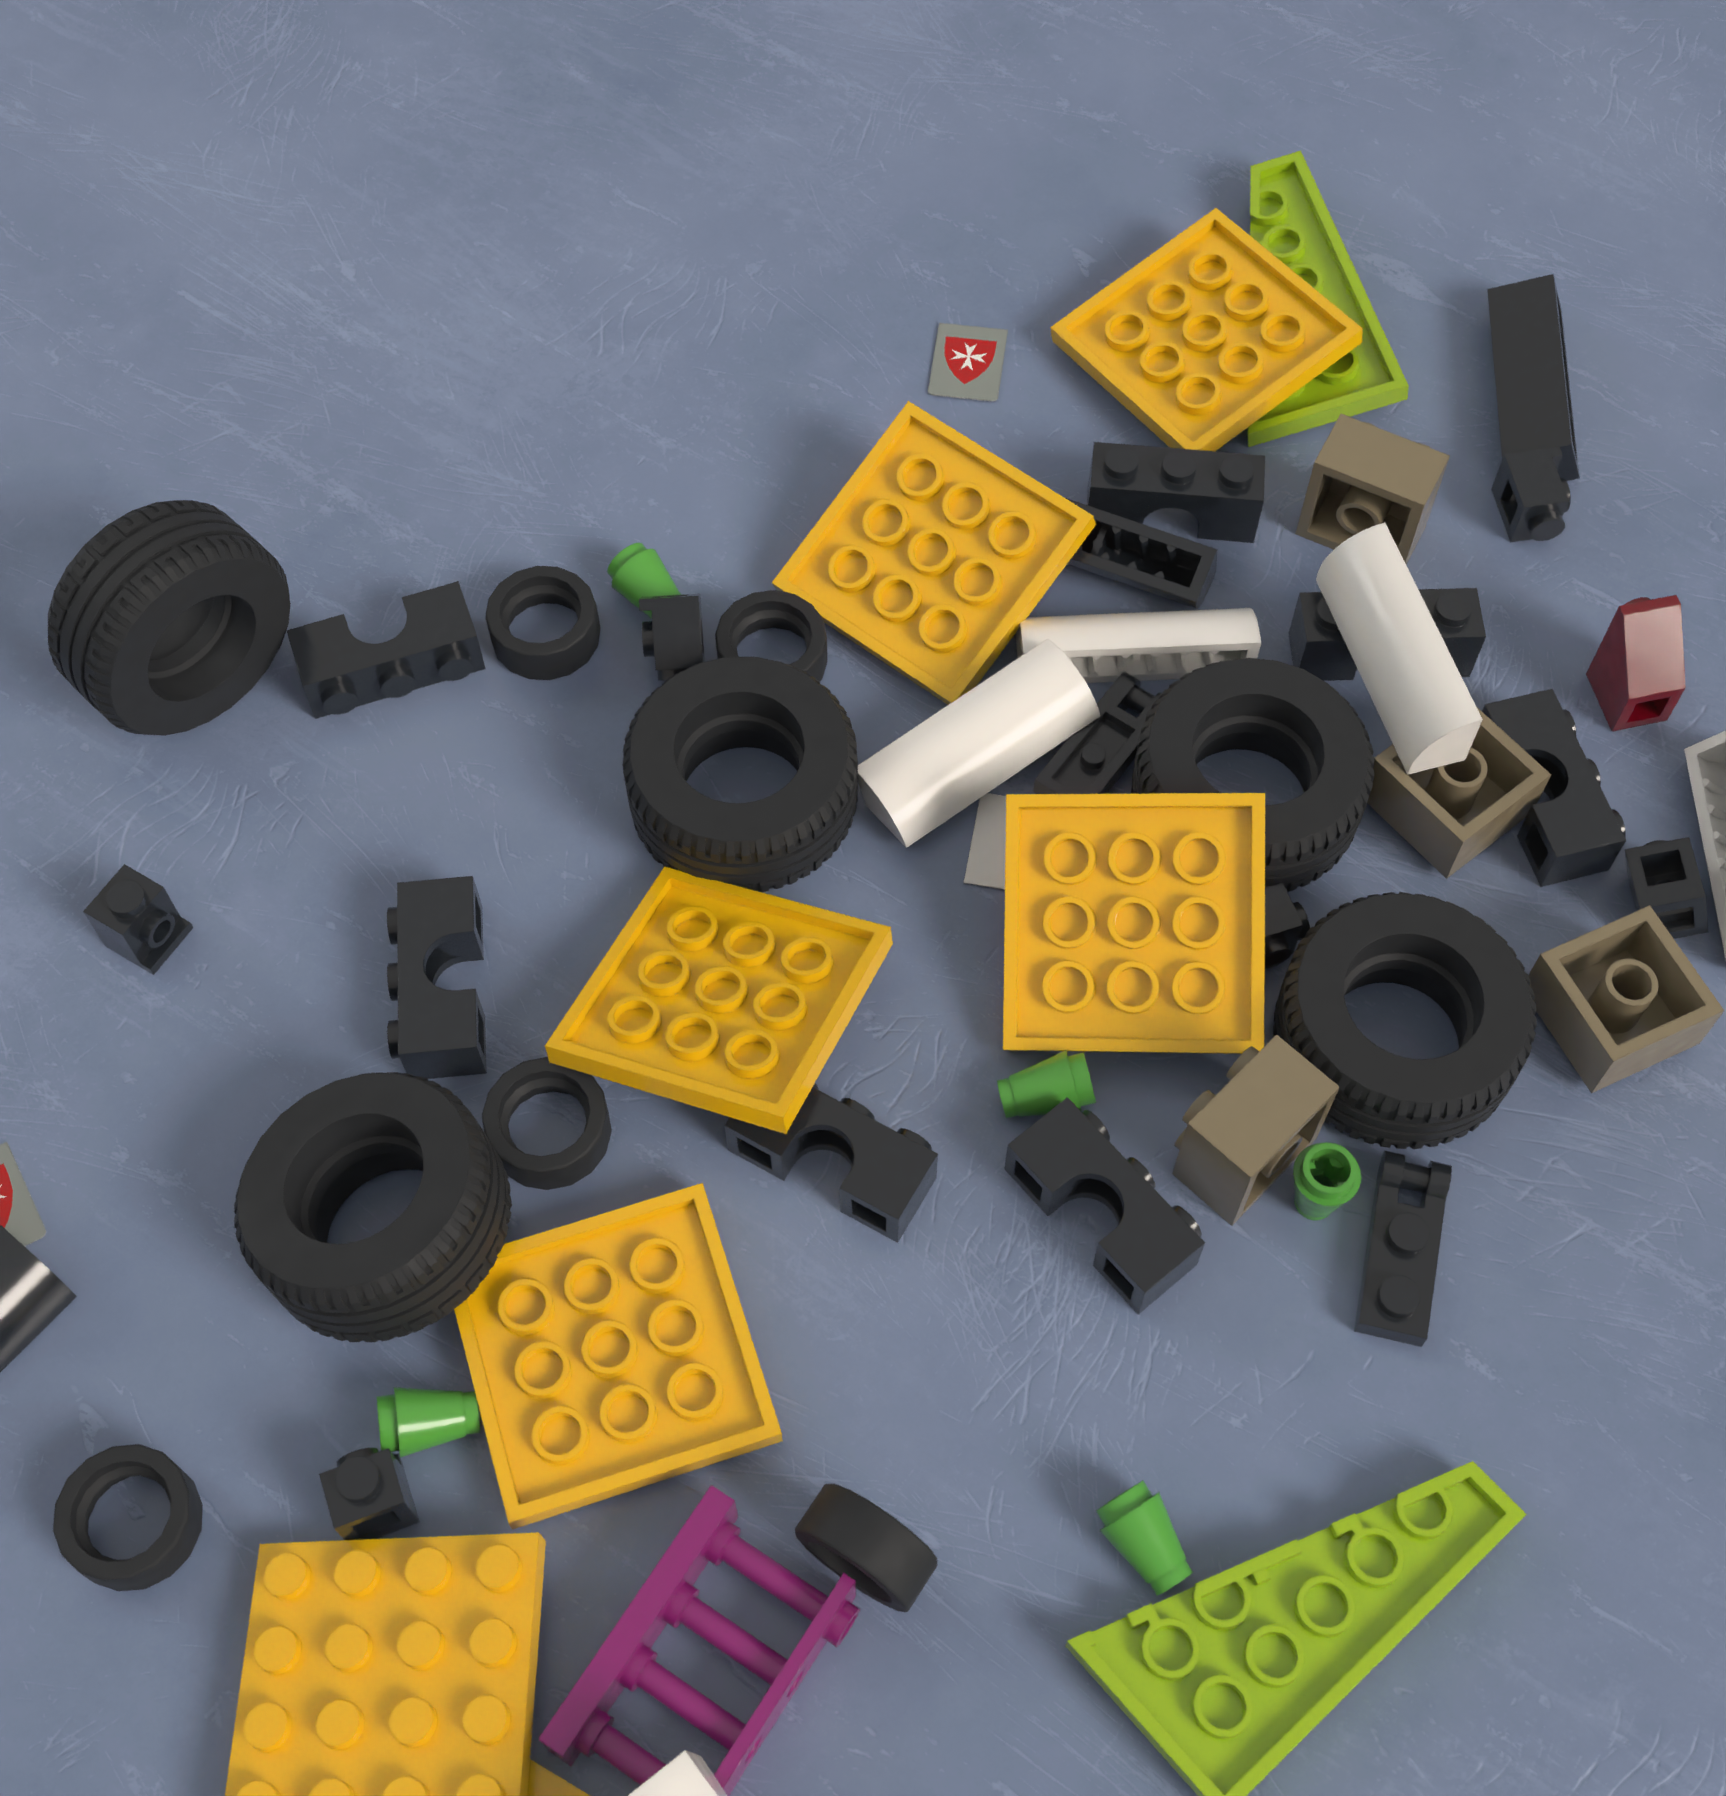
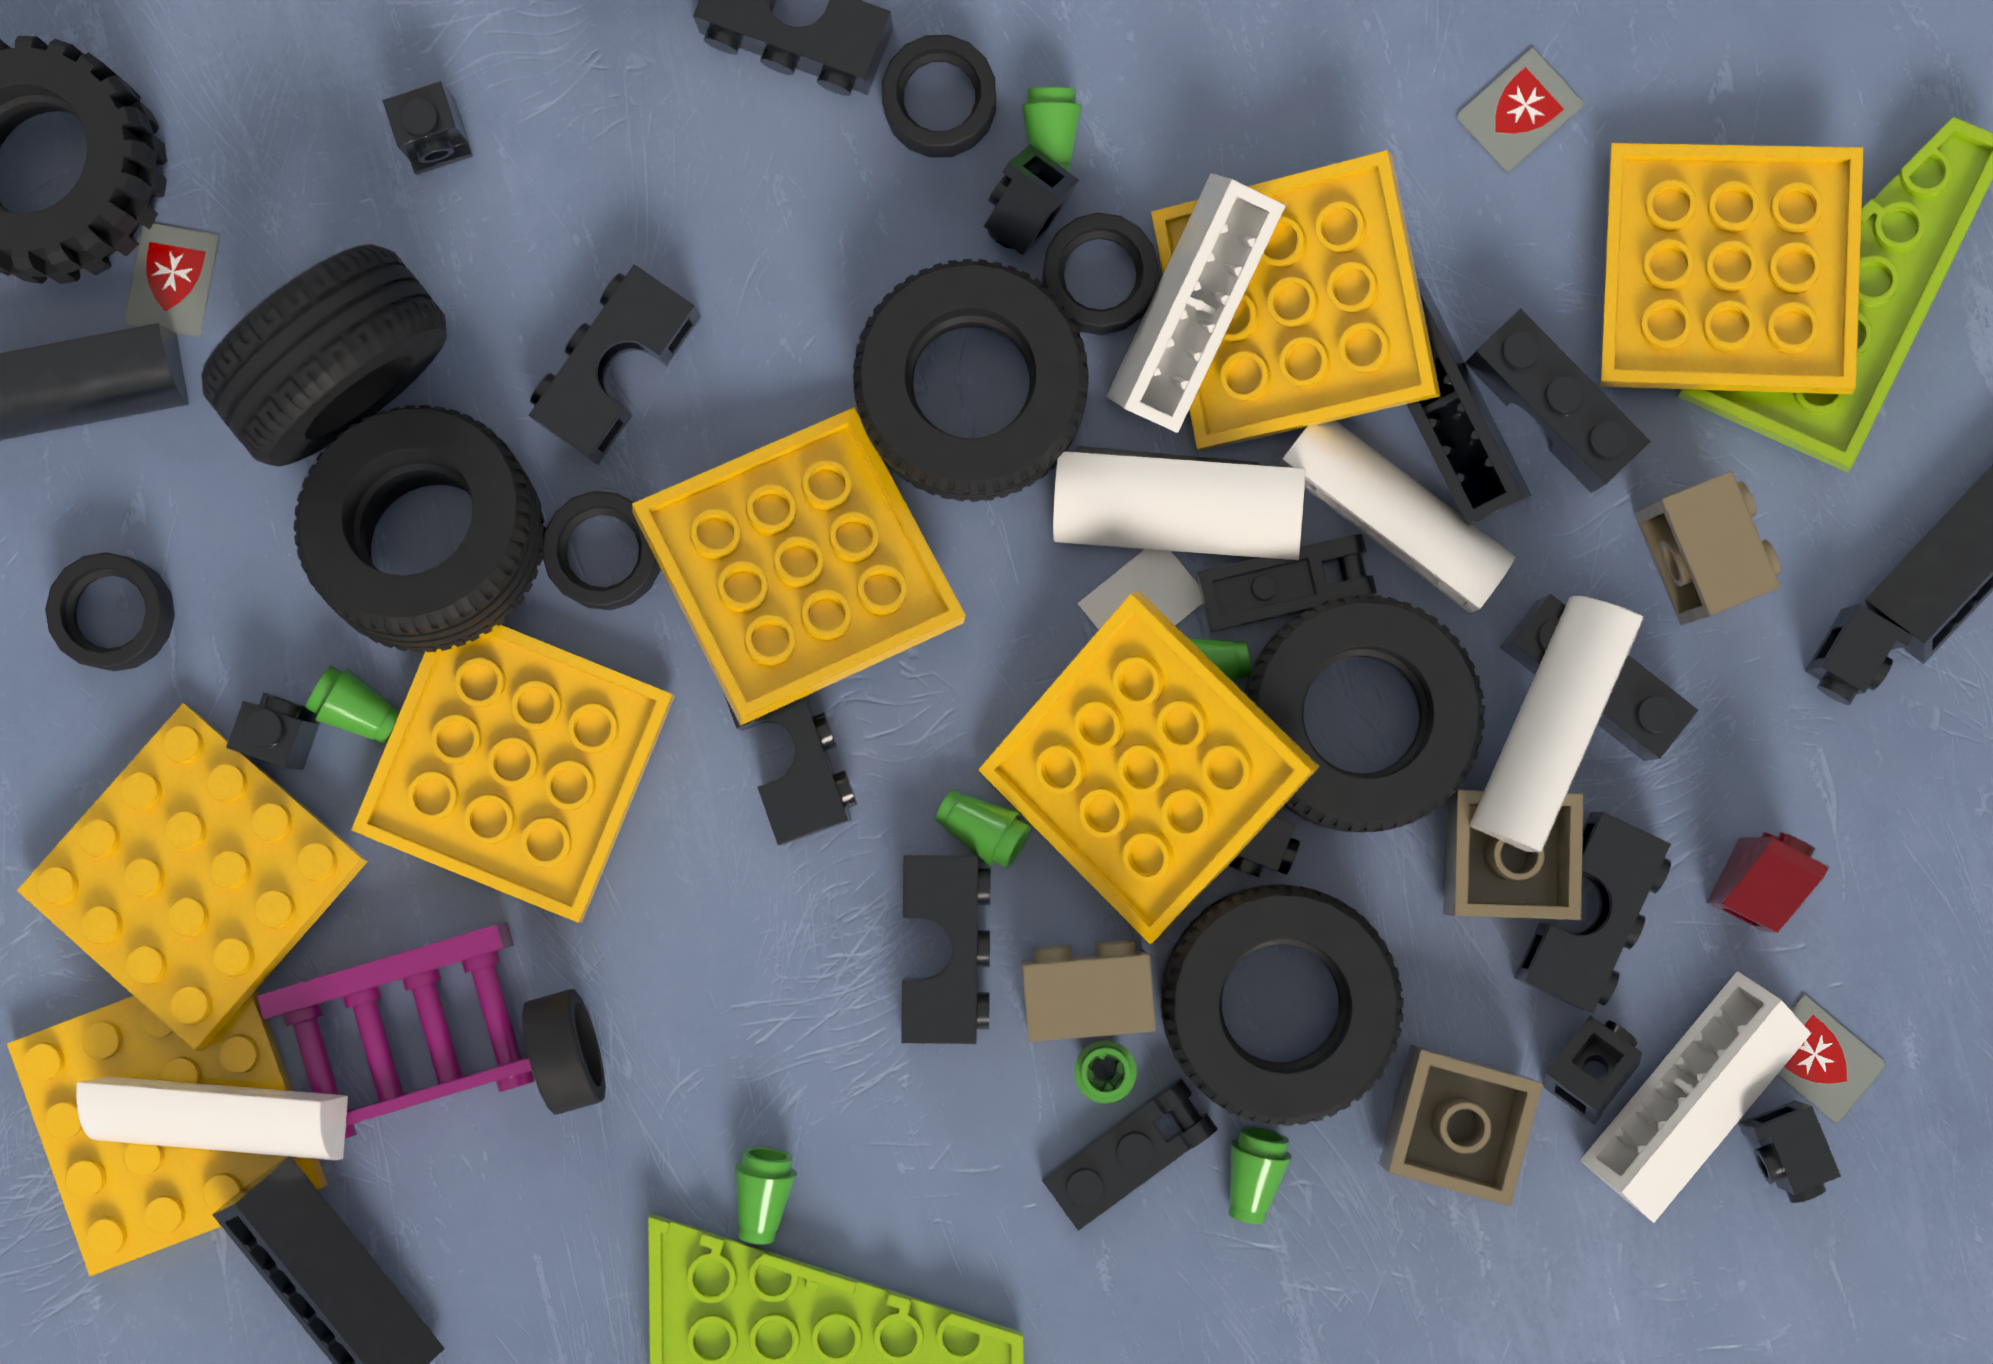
camera: 45 degrees right, 25 degrees up
(174, 1115) = (323, 354): none -> black tyre
(861, 601) = (1195, 301): none -> white brick
(1513, 1173) = (1256, 1172): none -> bright green cone

